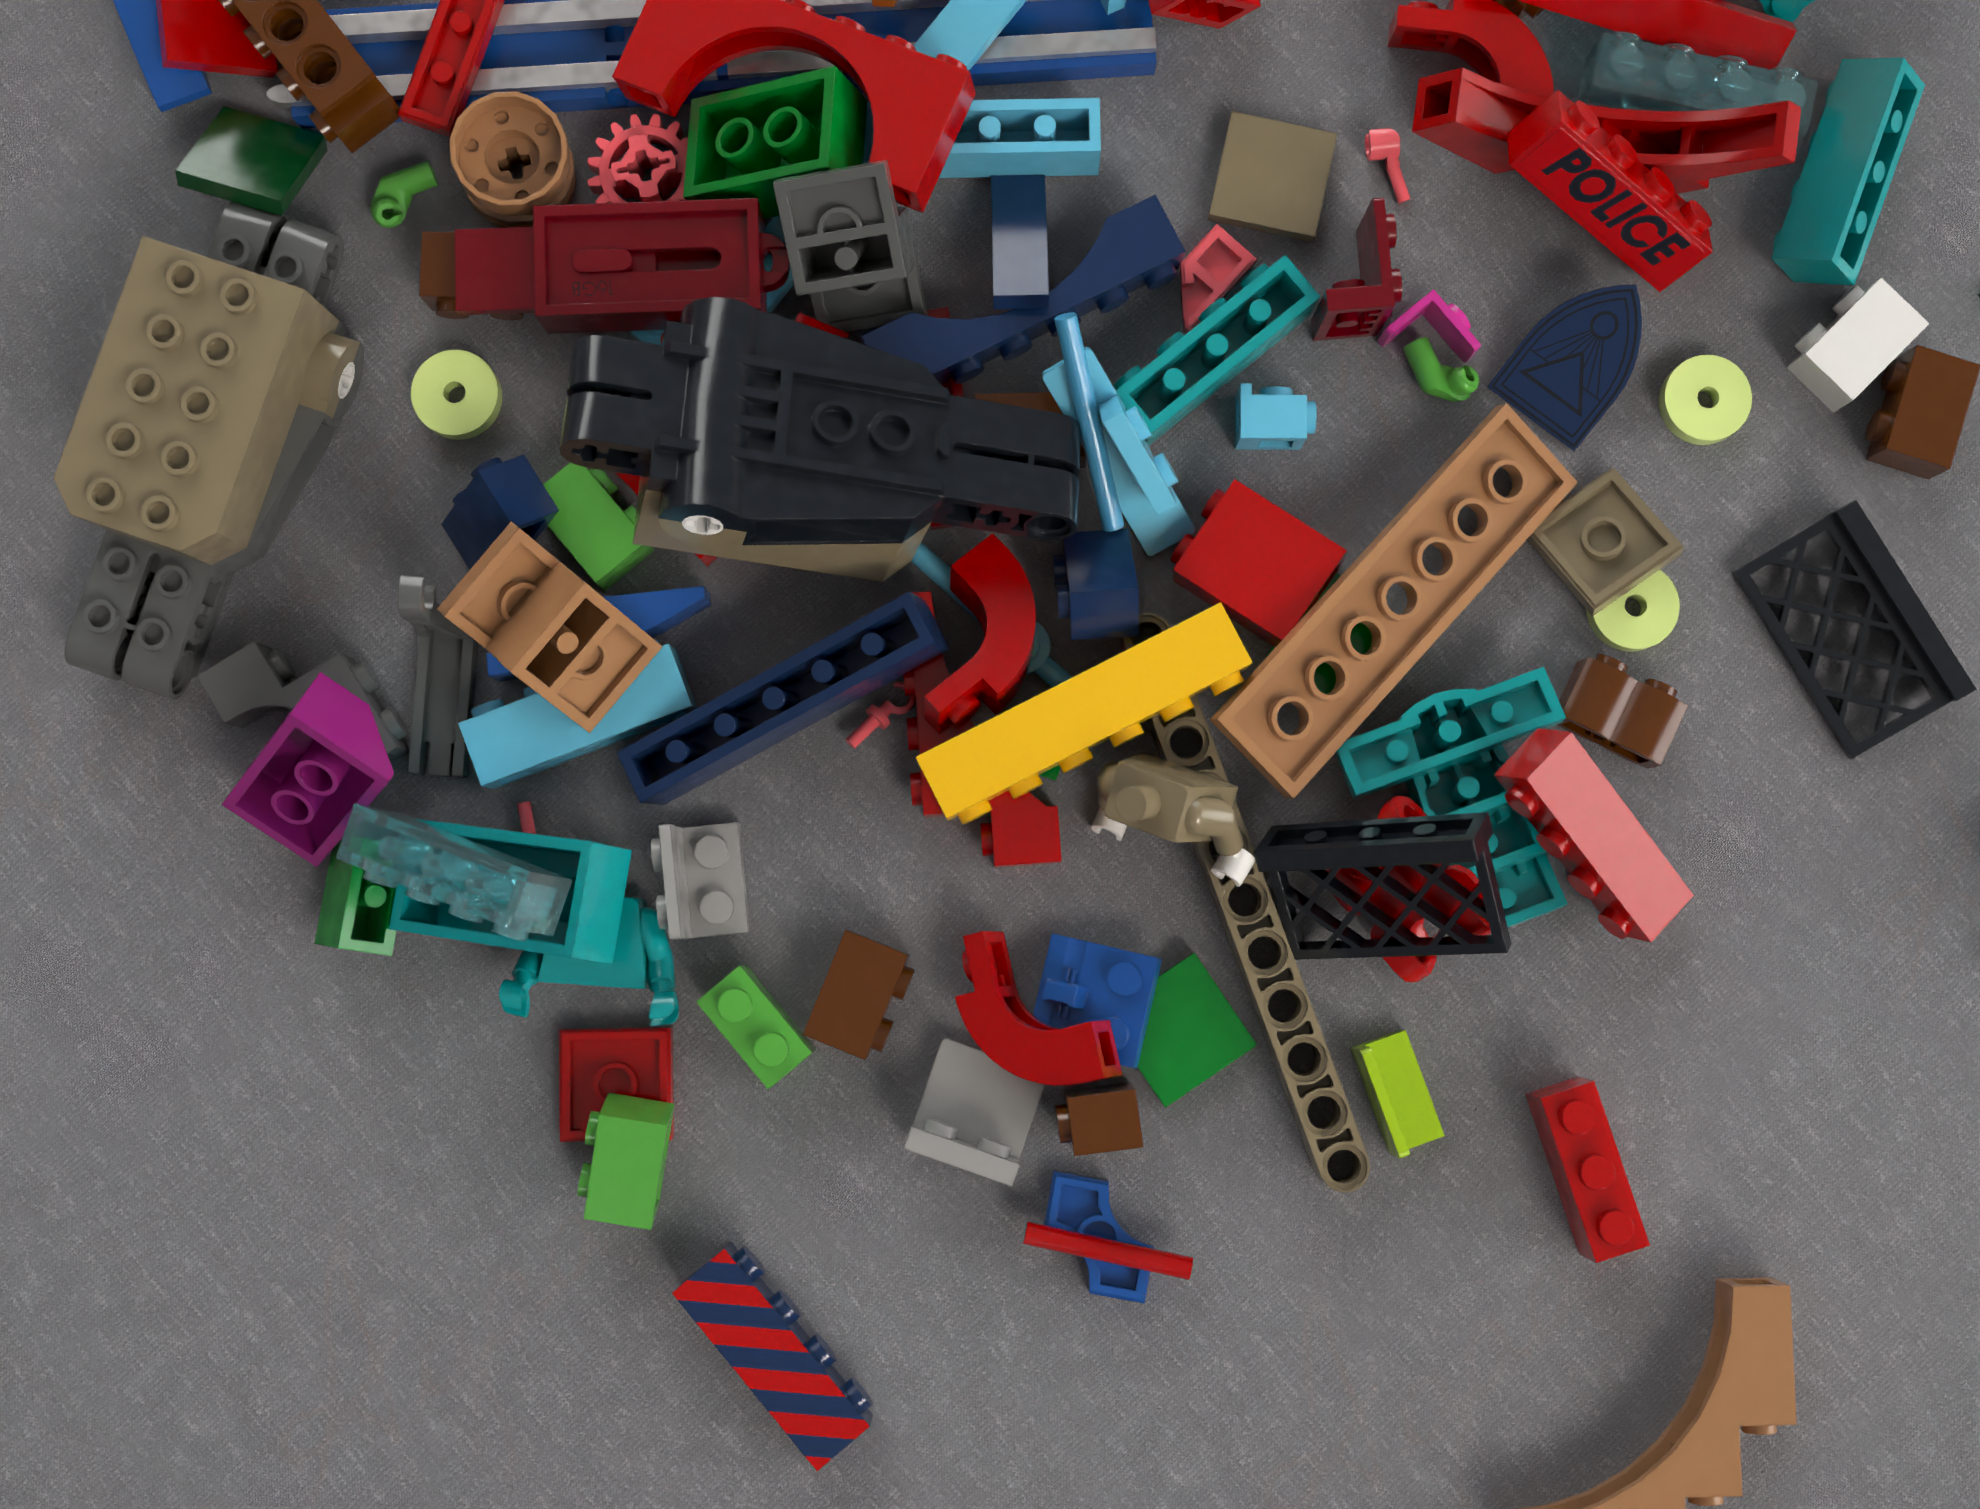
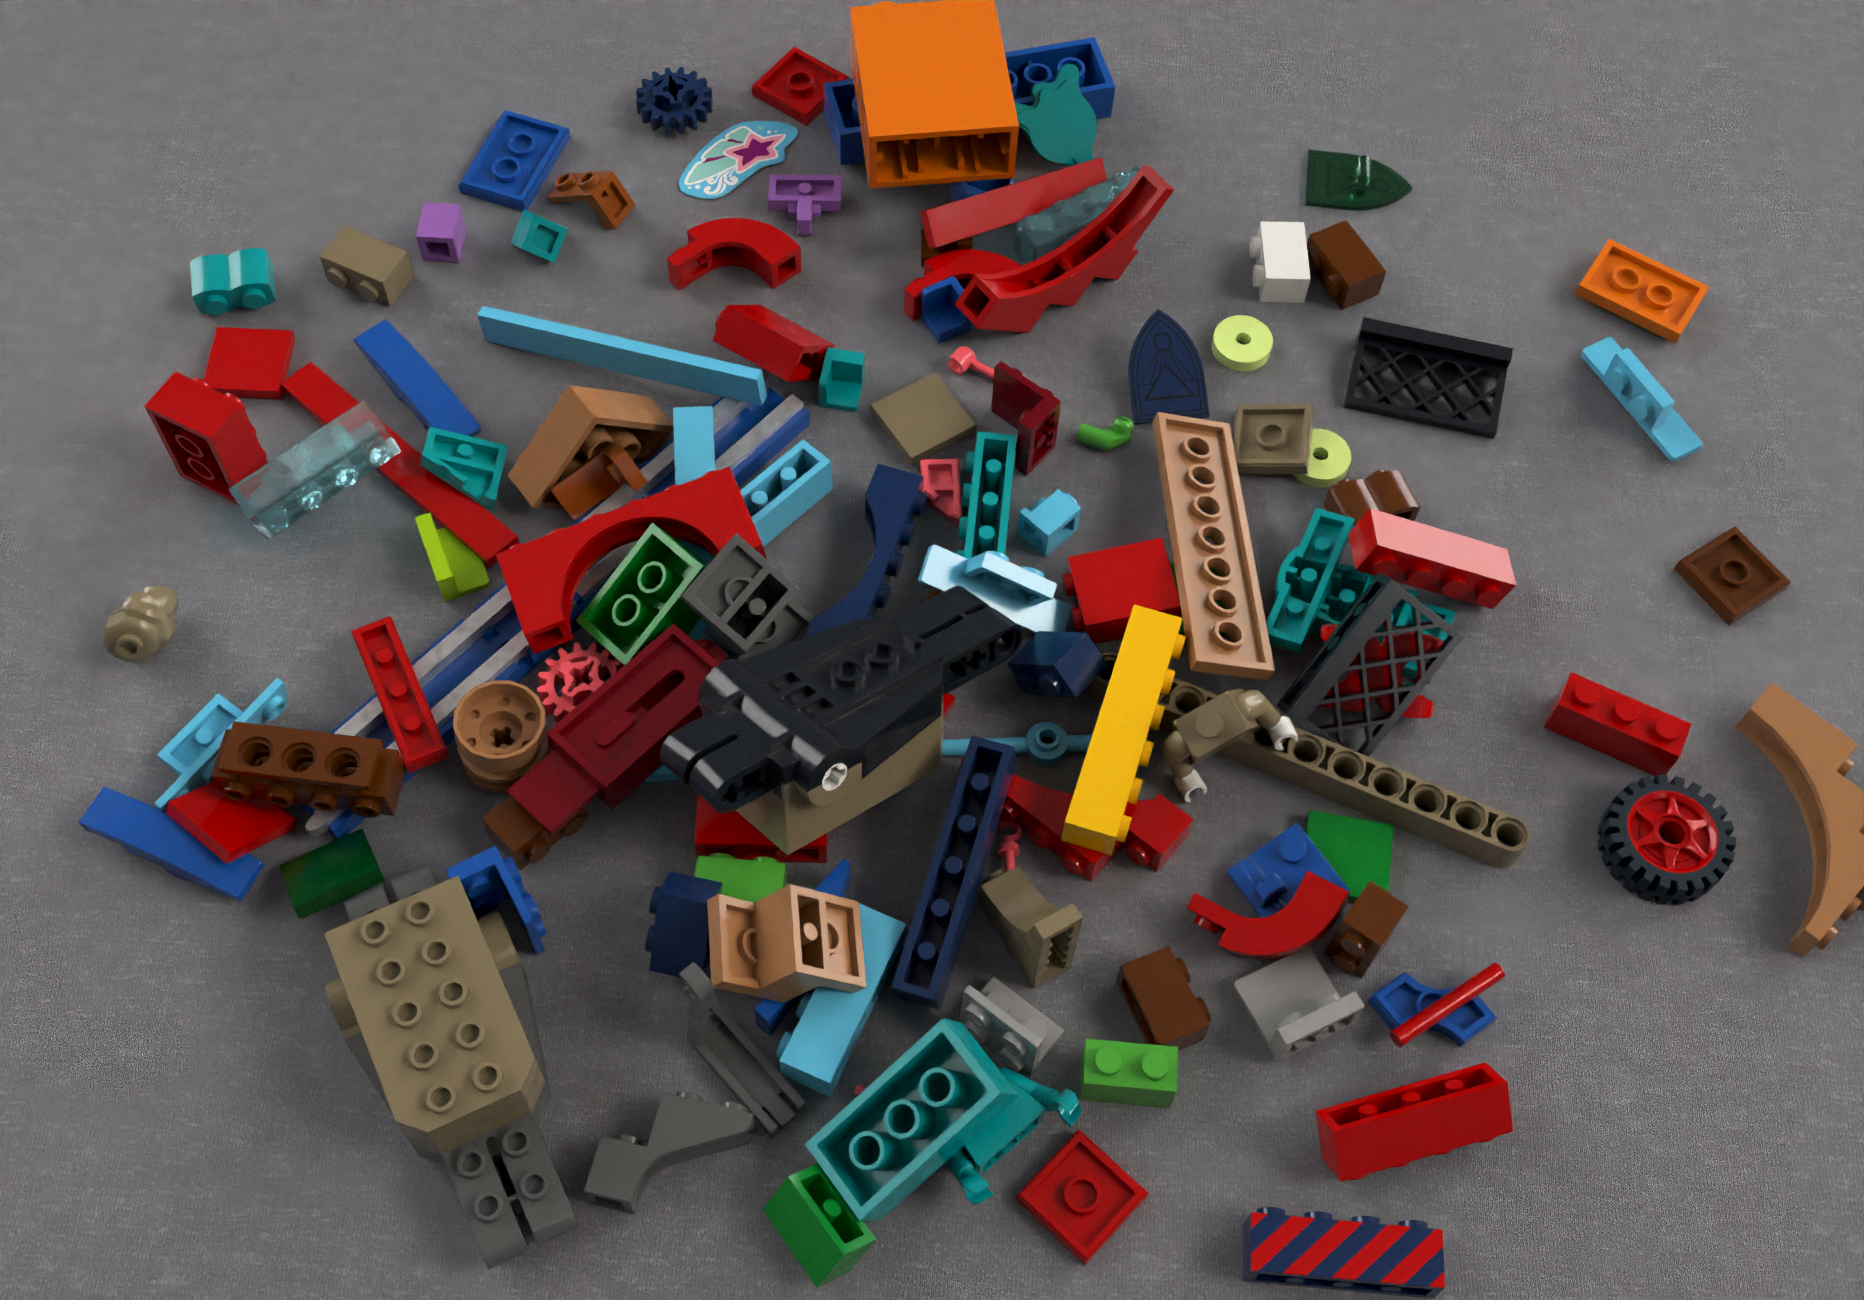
camera: 50 degrees left, 25 degrees down
(314, 771) = (721, 1168): magenta slope -> none
(384, 331) = (492, 880): none -> blue bracket
(397, 191) = (436, 820): bright green arm -> none
(442, 374) = (586, 917): yellowish green piece -> none
(454, 870) = (875, 1116): clear light blue brick -> none
(627, 1160) = (1141, 1222): bright green brick -> none
(808, 805) = (1030, 926): none -> dark tan arch
(956, 1317) = (1414, 1121): none -> red brick
(1002, 601) = (1033, 726): red arch -> none
(1019, 242) = (831, 544): dark blue tile -> none
(1089, 421) = (961, 577): dark azure bar -> none
(1229, 54) = (841, 379): none -> teal panel
(1397, 1092) = (1487, 782): lime panel -> none
(1421, 55) = (940, 312): none -> blue panel
(1445, 319) = (1085, 408): dark pink bracket -> none
(1543, 1323) = (1669, 871): none -> wheel
(1610, 190) = (1100, 278): red brick -> none
(1848, 170) = (1196, 200): teal brick -> none
(1911, 1139) = (1732, 575): none -> reddish brown tile

